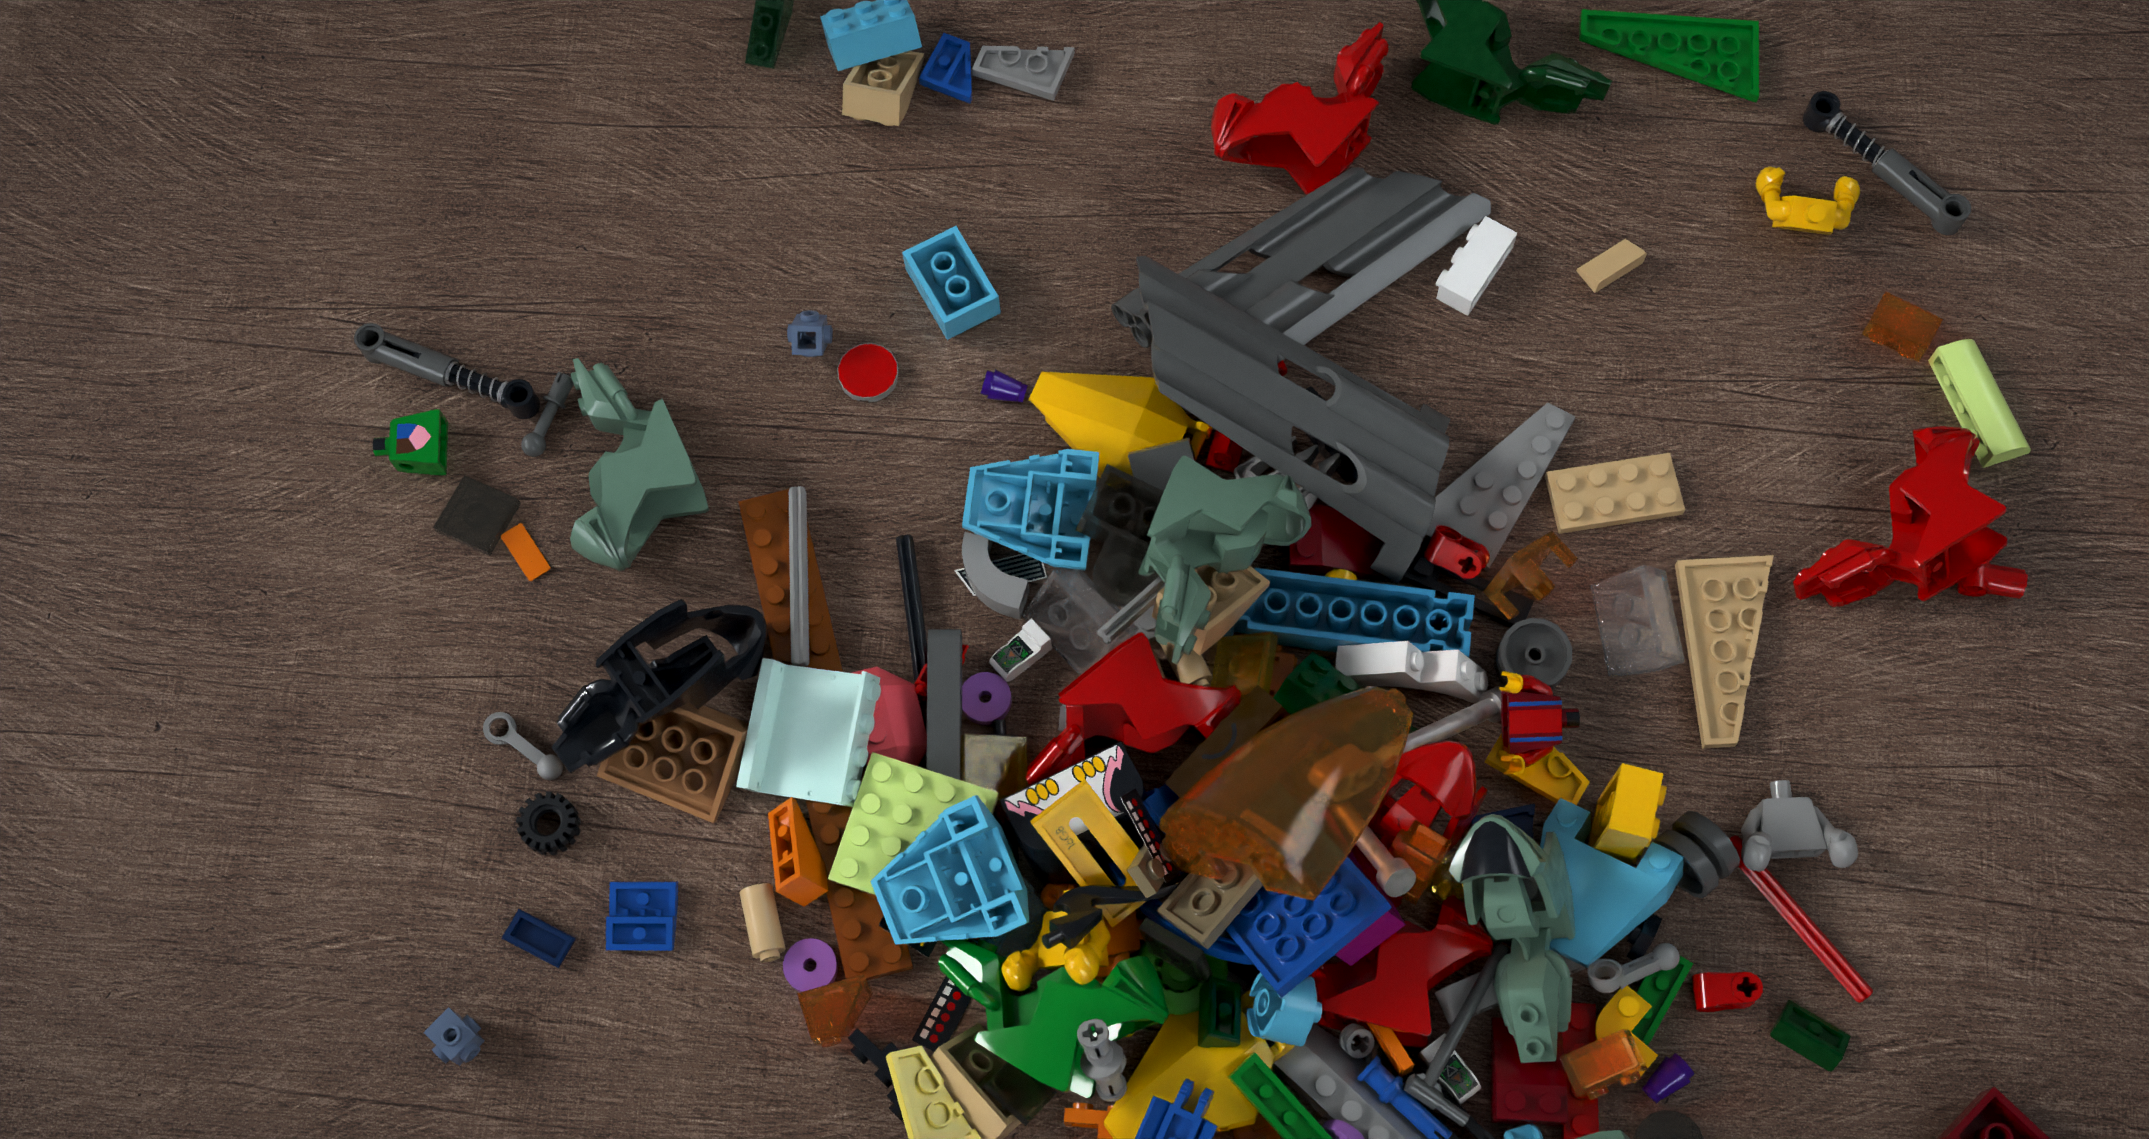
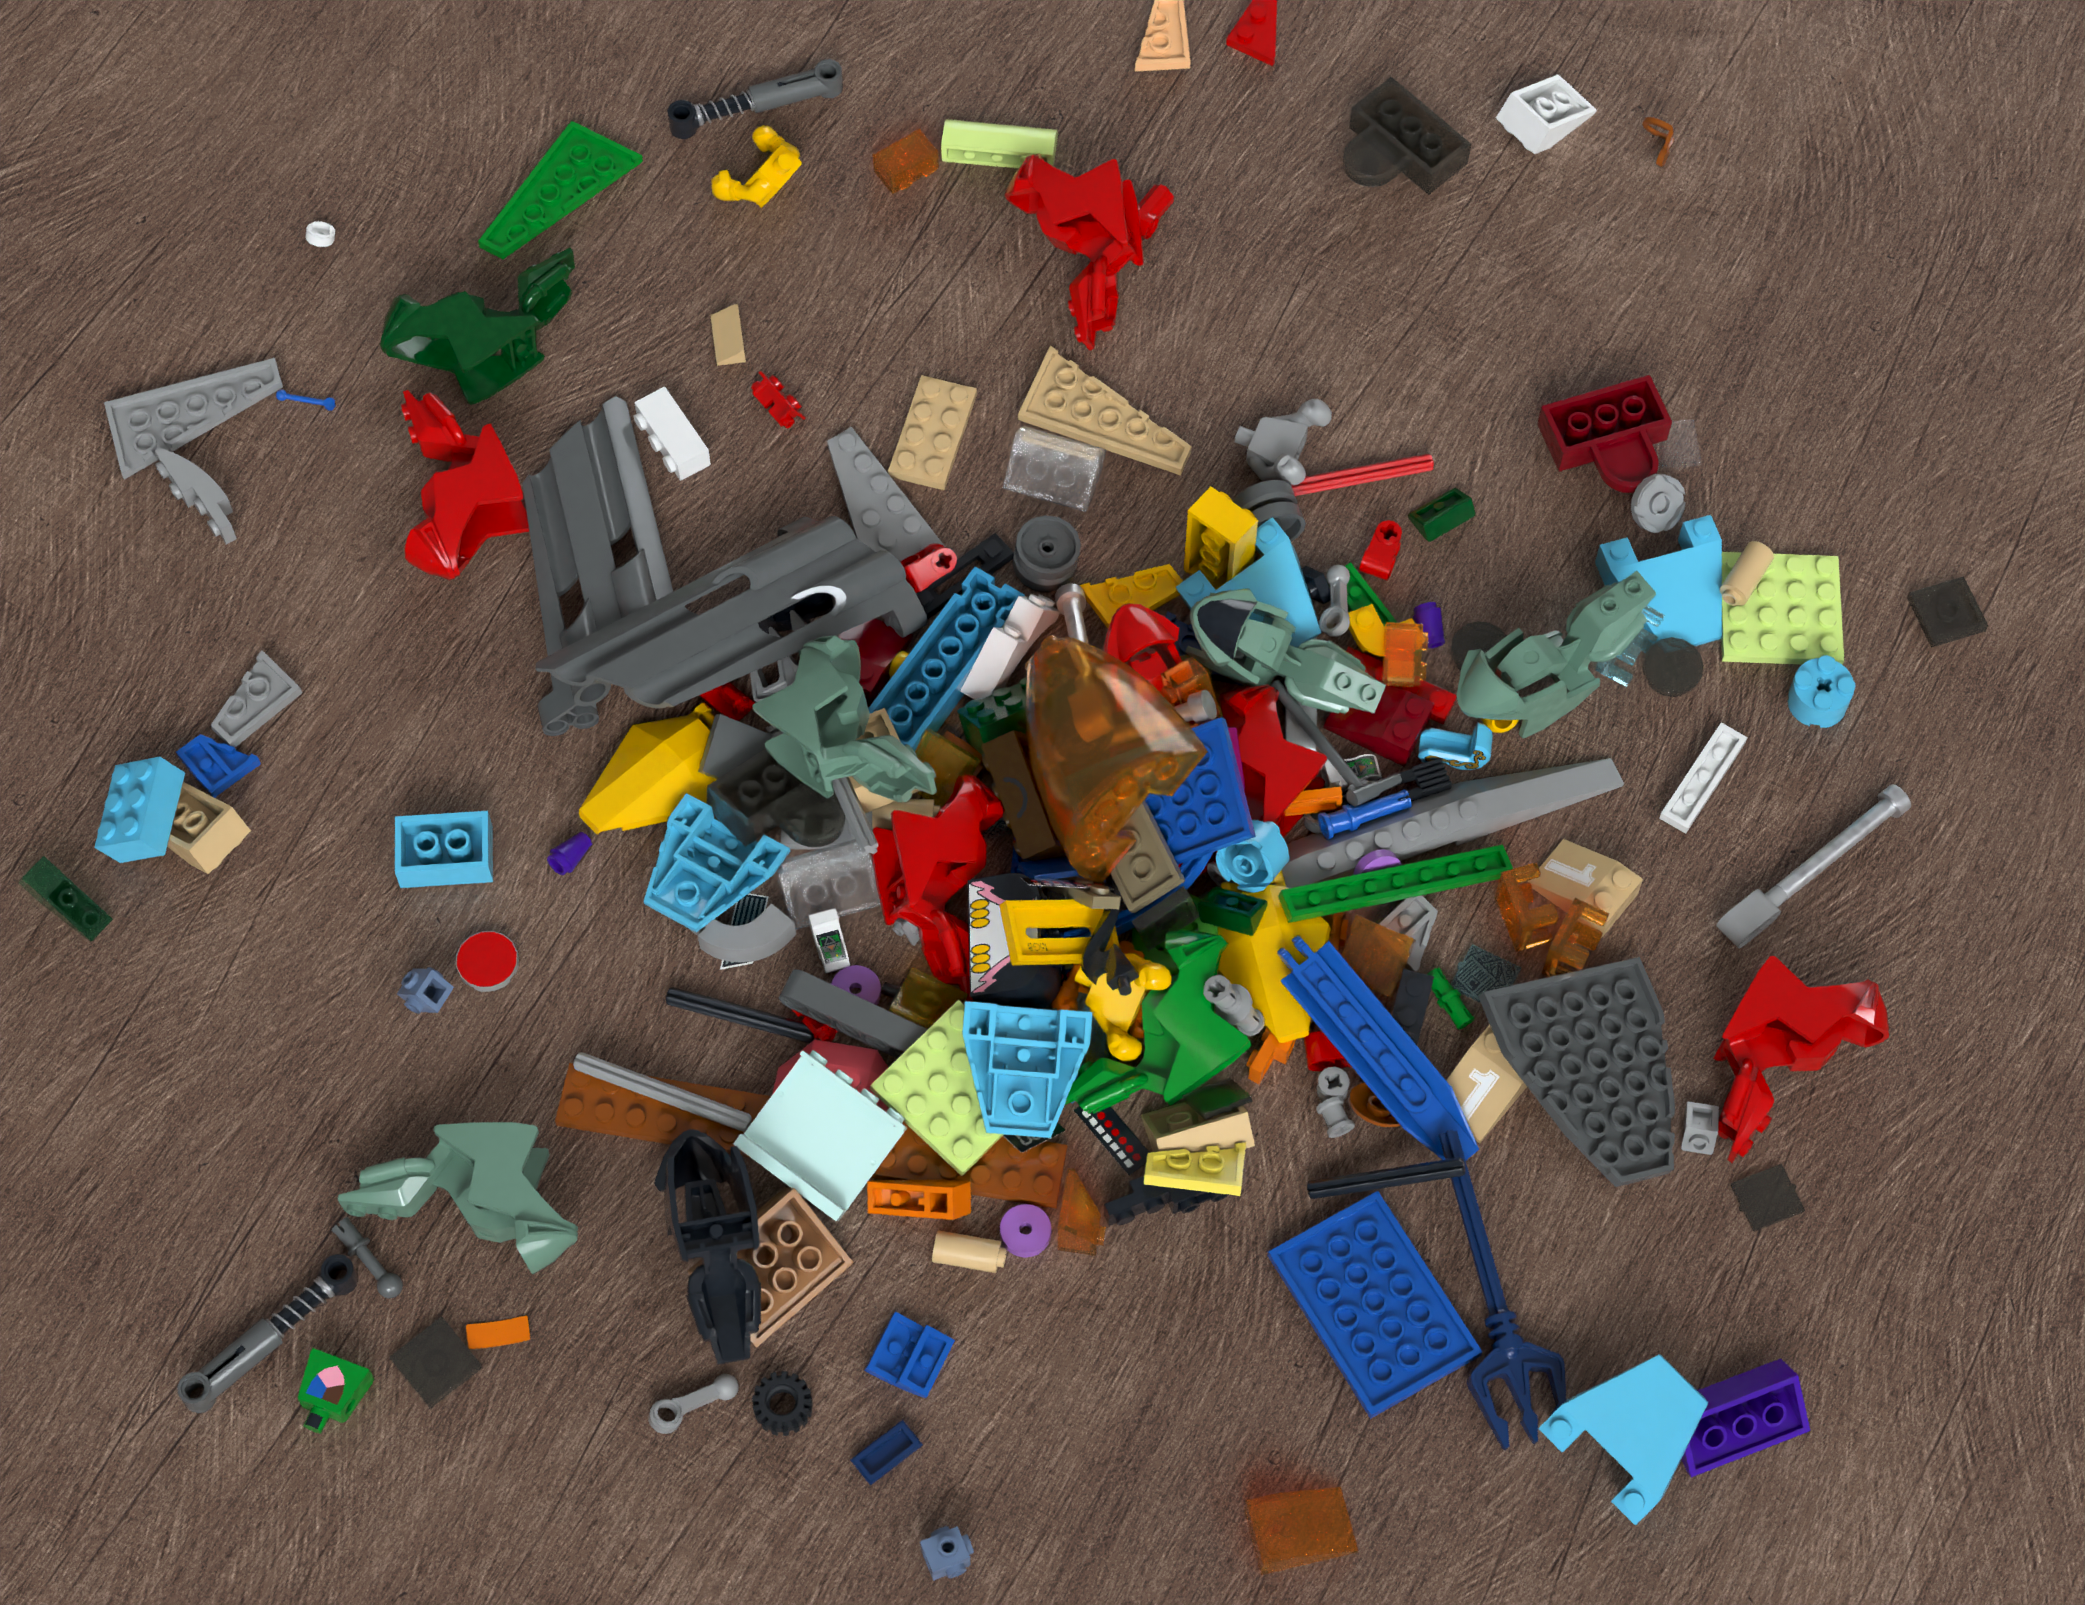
camera: 70 degrees left, 5 degrees down
(1346, 1038) = (1297, 827): light grey bush -> none
(1524, 569) = (977, 519): clear orange panel -> none
(1531, 721) = (1103, 575): torso -> none
(1572, 327) = (785, 407): none -> red hinge

